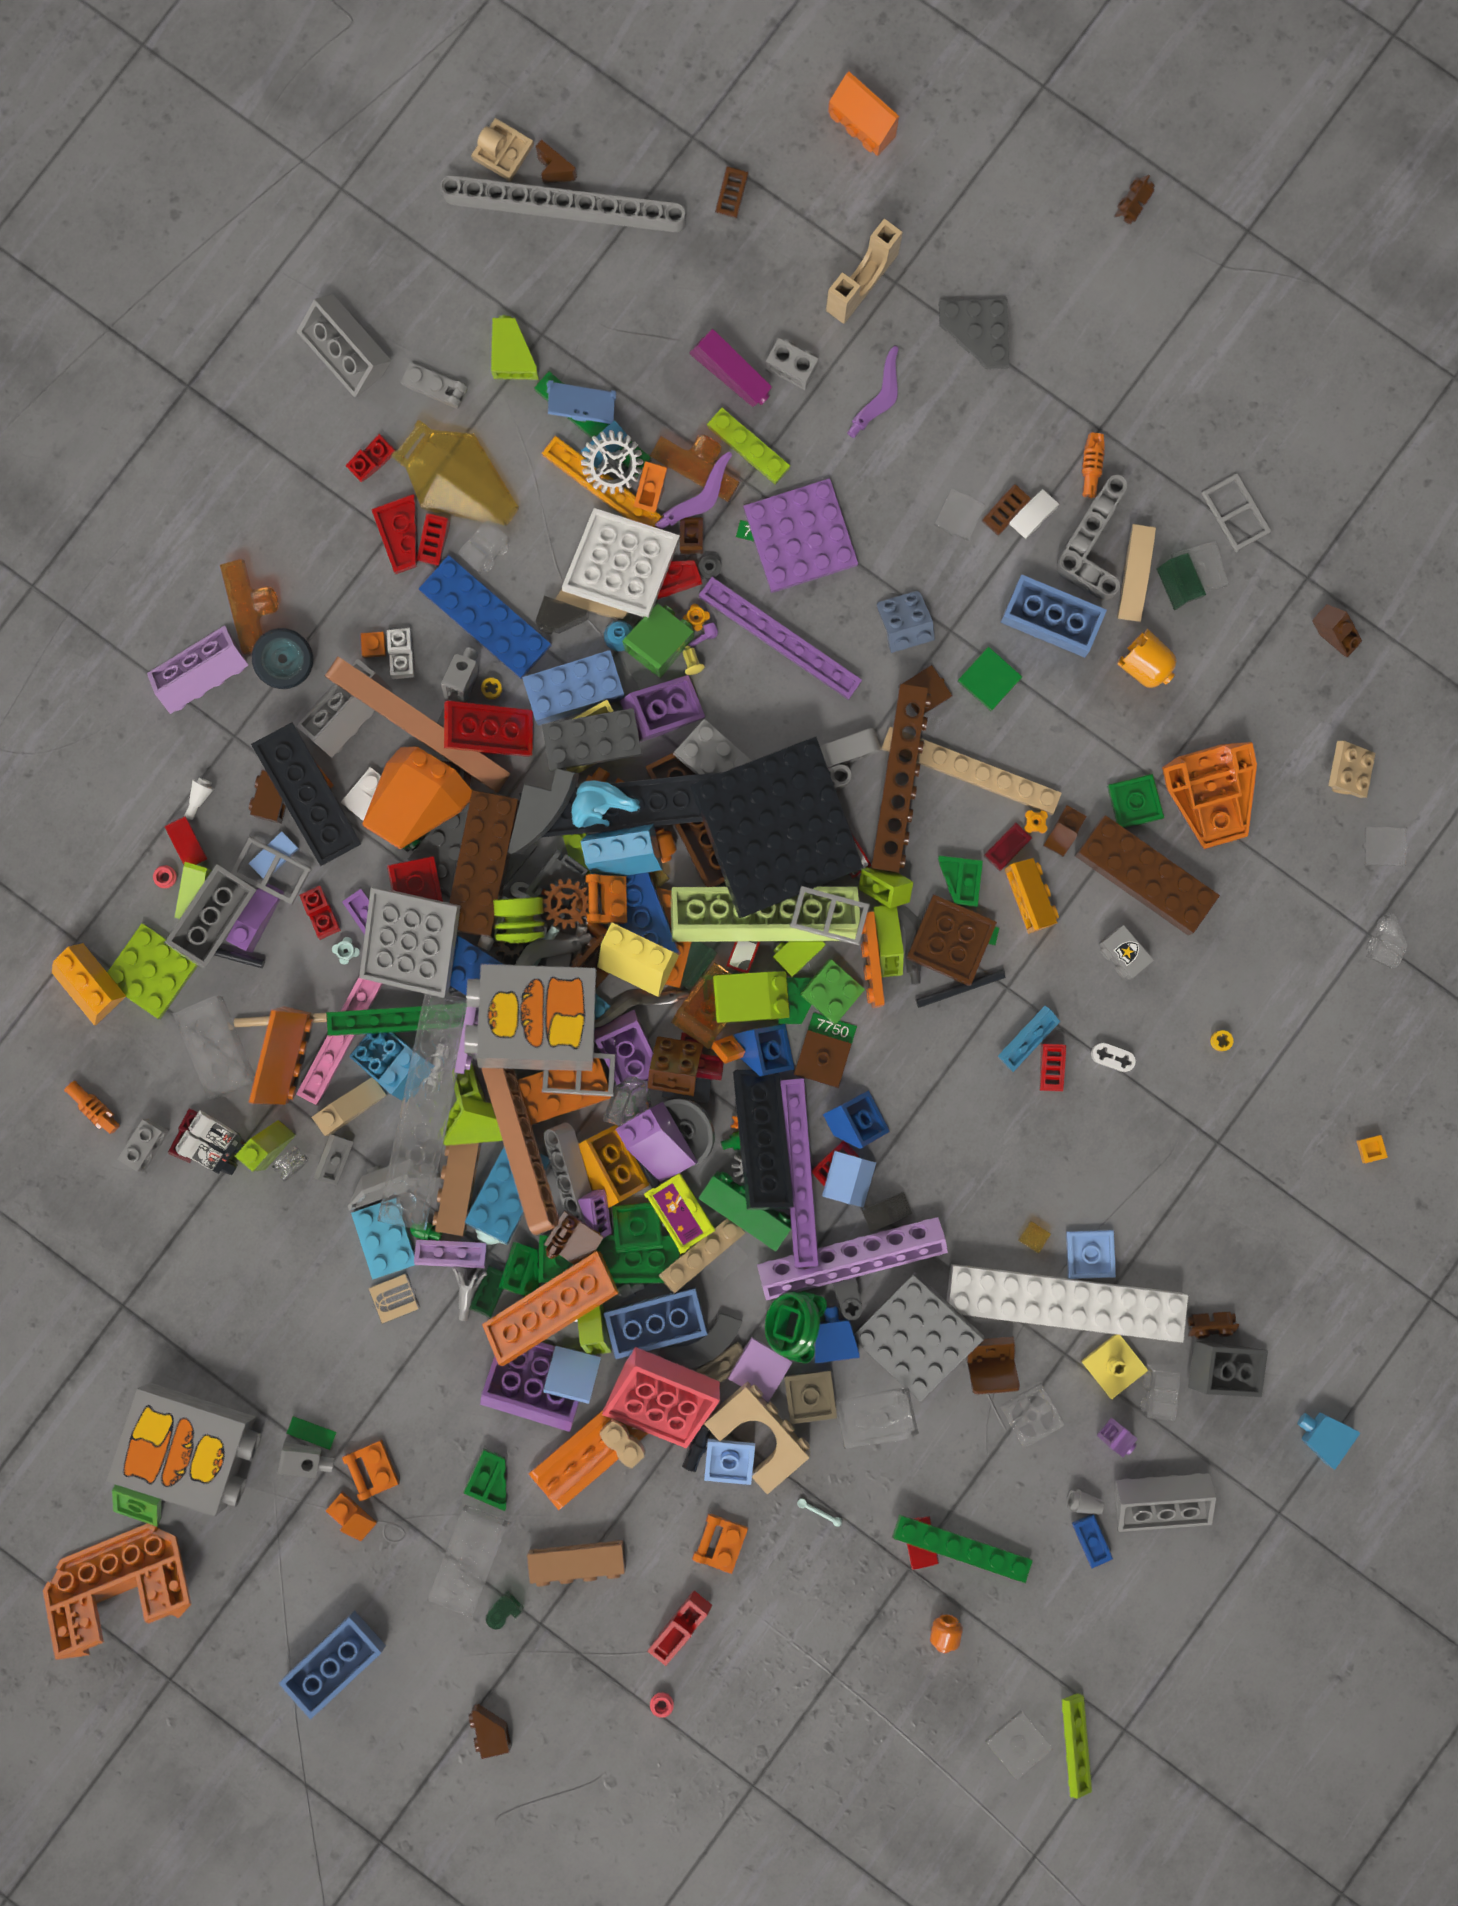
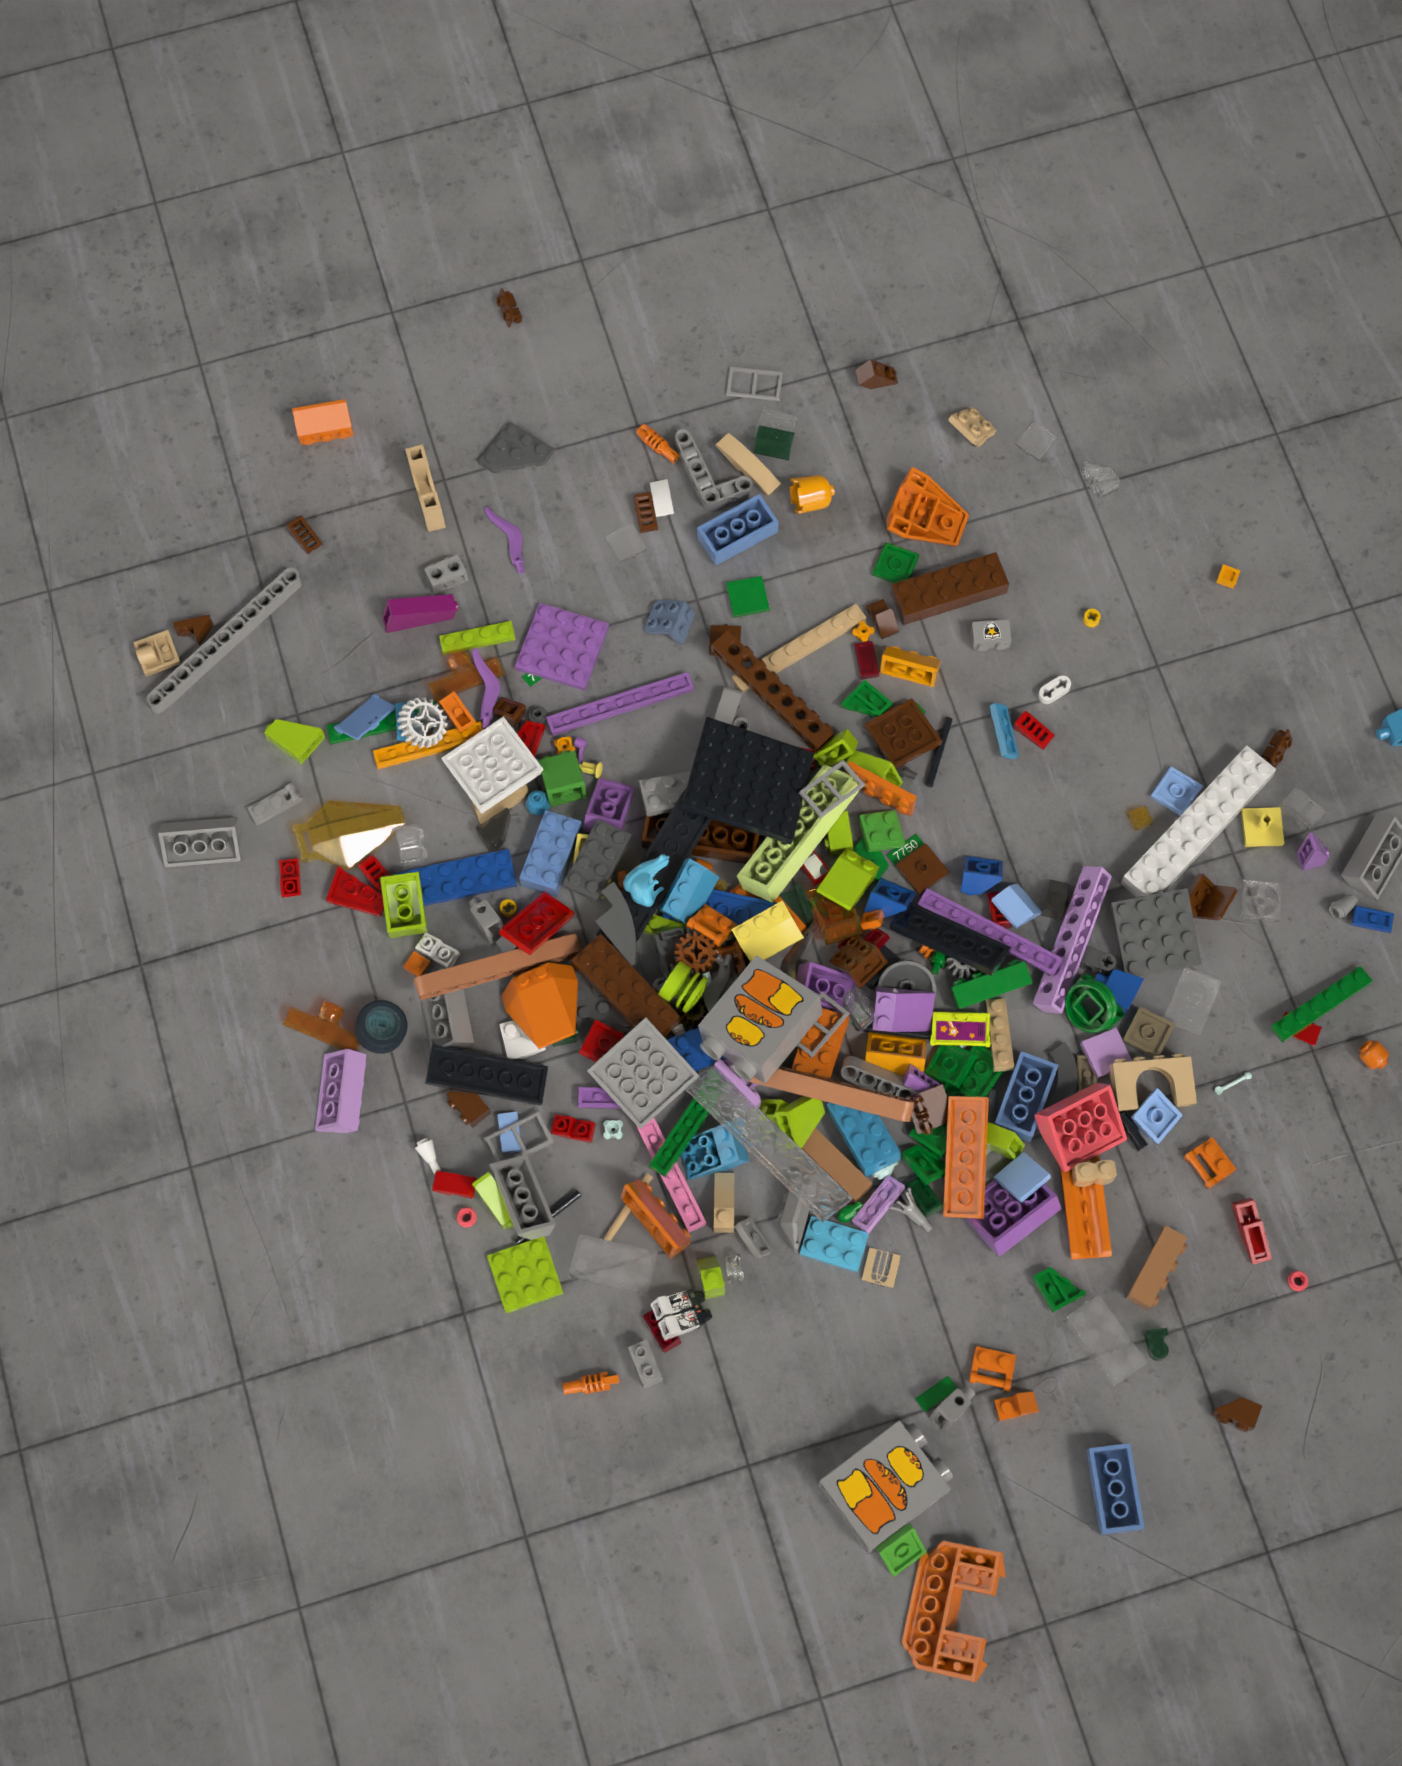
camera: 55 degrees left, 15 degrees down
(87, 982) = (500, 1323): light orange slope -> none
(254, 919) = (546, 1176): medium lavender slope -> none
(416, 587) = (404, 905): none -> lime slope
(1227, 1369) = (1313, 758): dark grey slope -> none

